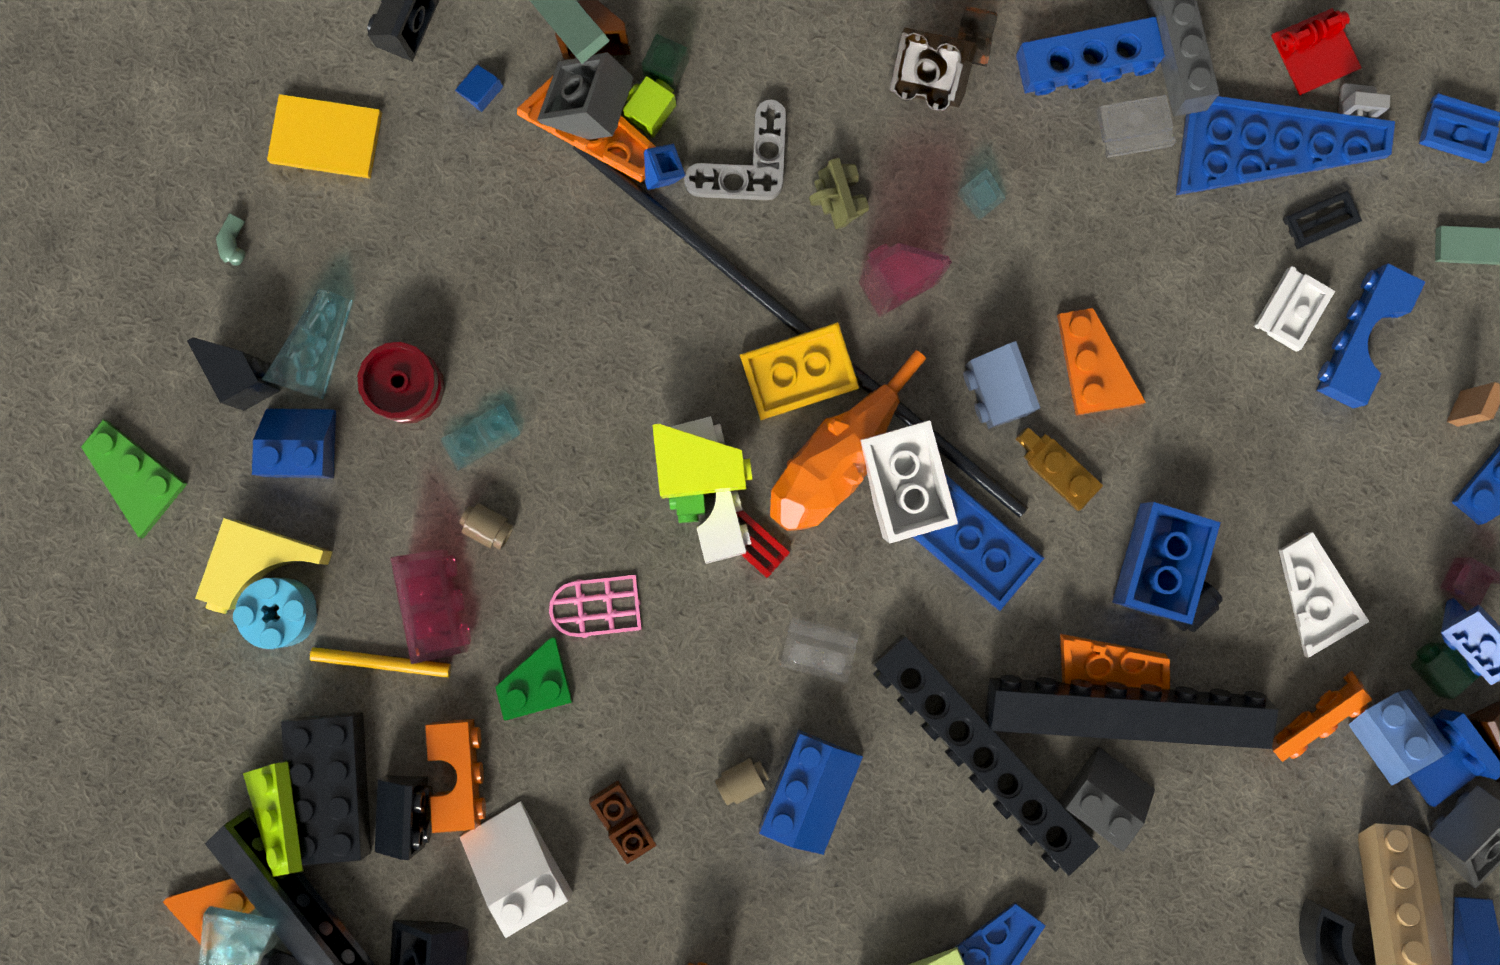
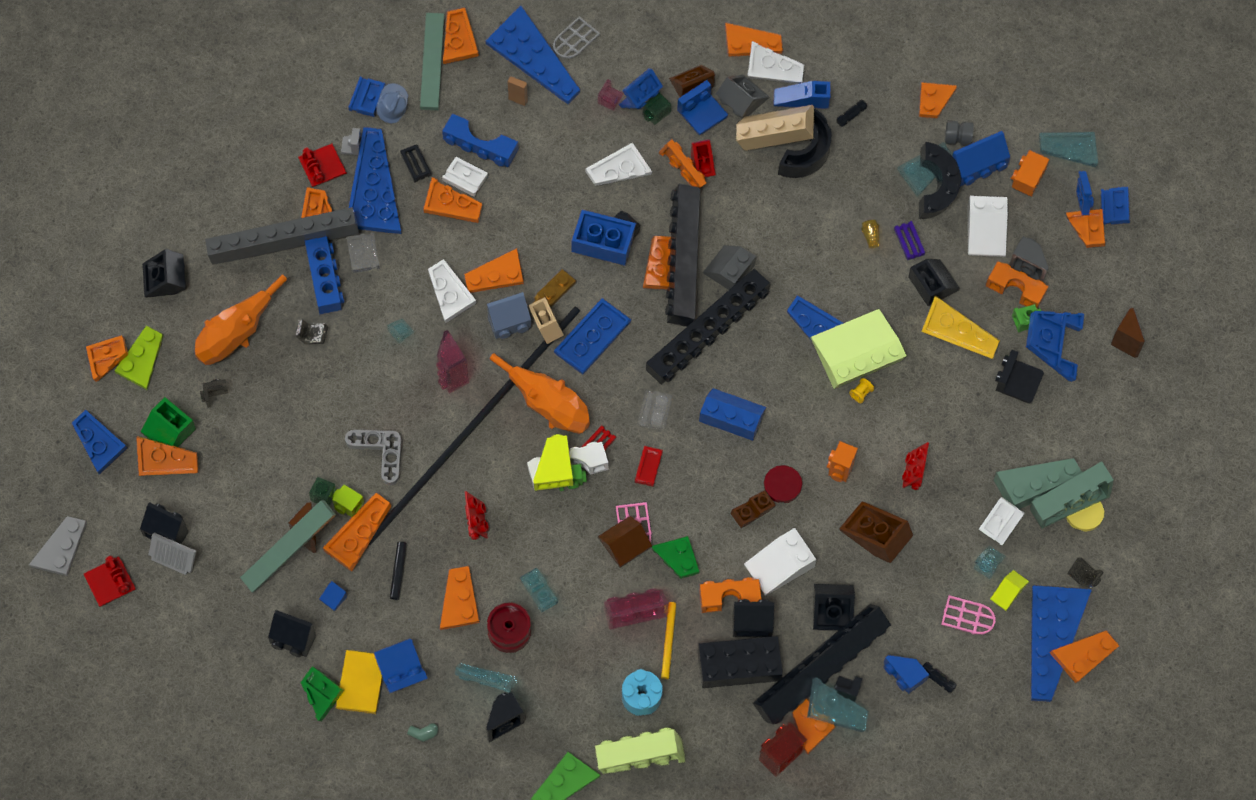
camera: 90 degrees left, 20 degrees down
(153, 859) = (782, 749): none -> clear red brick
(166, 609) = (640, 751): none -> yellowish green wedge
(246, 555) = (610, 713): light yellow arch -> none
(275, 815) = (755, 682): lime wing -> none
(295, 444) = (543, 687): blue slope -> none
(306, 68) = (321, 692): none -> green wing
(335, 199) = (399, 665): none -> blue bracket
(466, 301) = (459, 600): none -> orange wing
(486, 526) = (590, 583): dark tan brick -> none
(523, 196) = (398, 570): none -> black piece
(565, 588) = (625, 541): none -> reddish brown slope
(586, 97) = (345, 531): dark grey slope -> none
(611, 325) = (476, 518): none -> red hinge
(662, 166) = (384, 492): blue slope -> none
(670, 879) = (783, 484): none -> dark red tile
(710, 635) = (648, 466): none -> red tile
(742, 781) = (728, 446): dark tan brick -> none
(799, 371) = (500, 421): yellow tile -> none
(835, 195) = (400, 402): olive hips -> none
(908, 482) = (564, 358): white slope -> none
(932, 68) = (330, 353): dark brown slope -> none
(992, 453) = (546, 320): none -> tan brick
(1055, 283) = (450, 291): none -> white wing
(1233, 39) = (315, 203): none -> orange wing
(1237, 282) = (448, 203): none -> orange wing
(1337, 756) = (702, 157): none -> red slope
(1400, 736) = (691, 128): medium blue slope -> none
(1448, 175) = (392, 103): none -> sand blue piece

